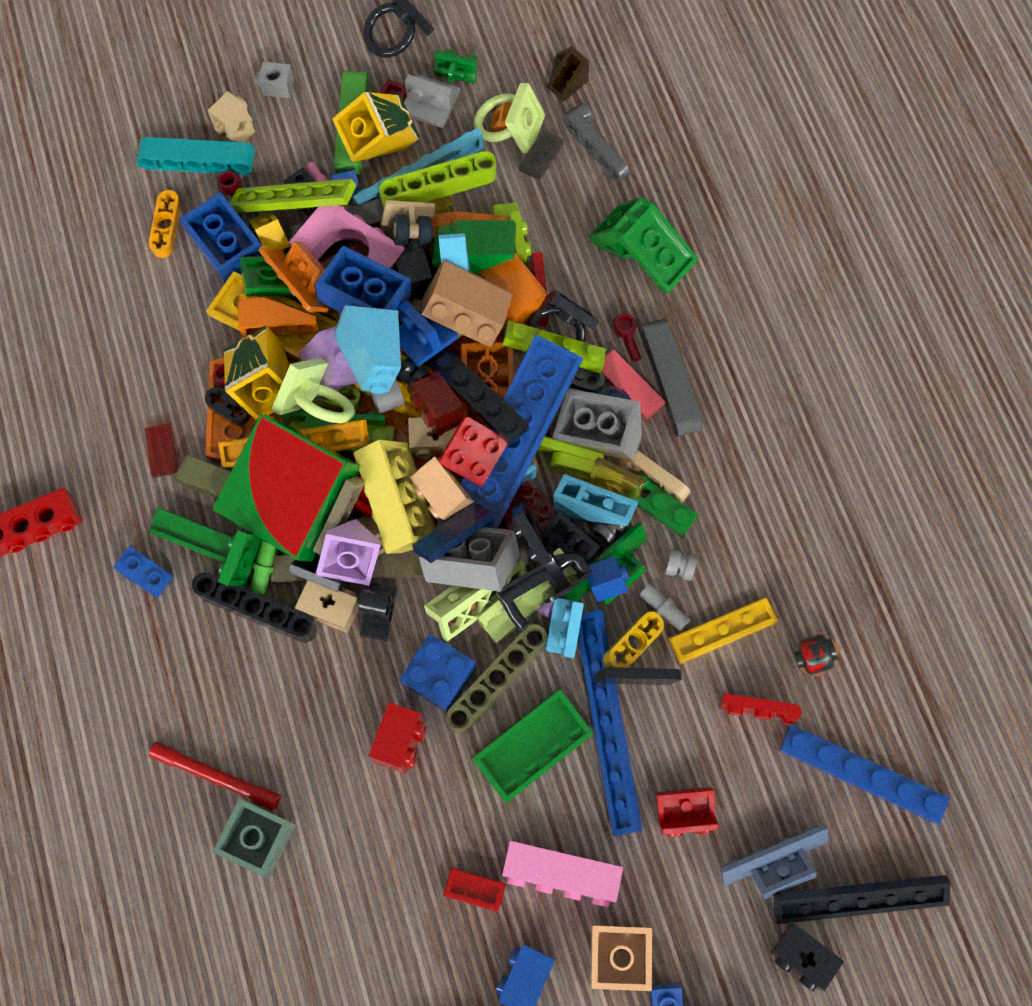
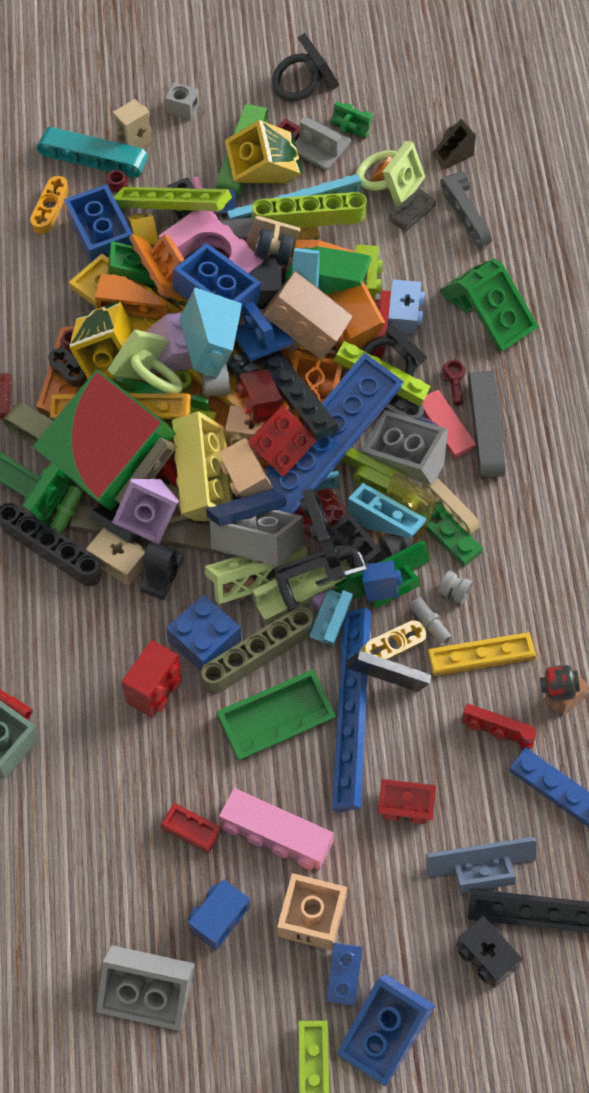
camera: 10 degrees right, 10 degrees down
(555, 252) = (405, 305): none -> light blue brick

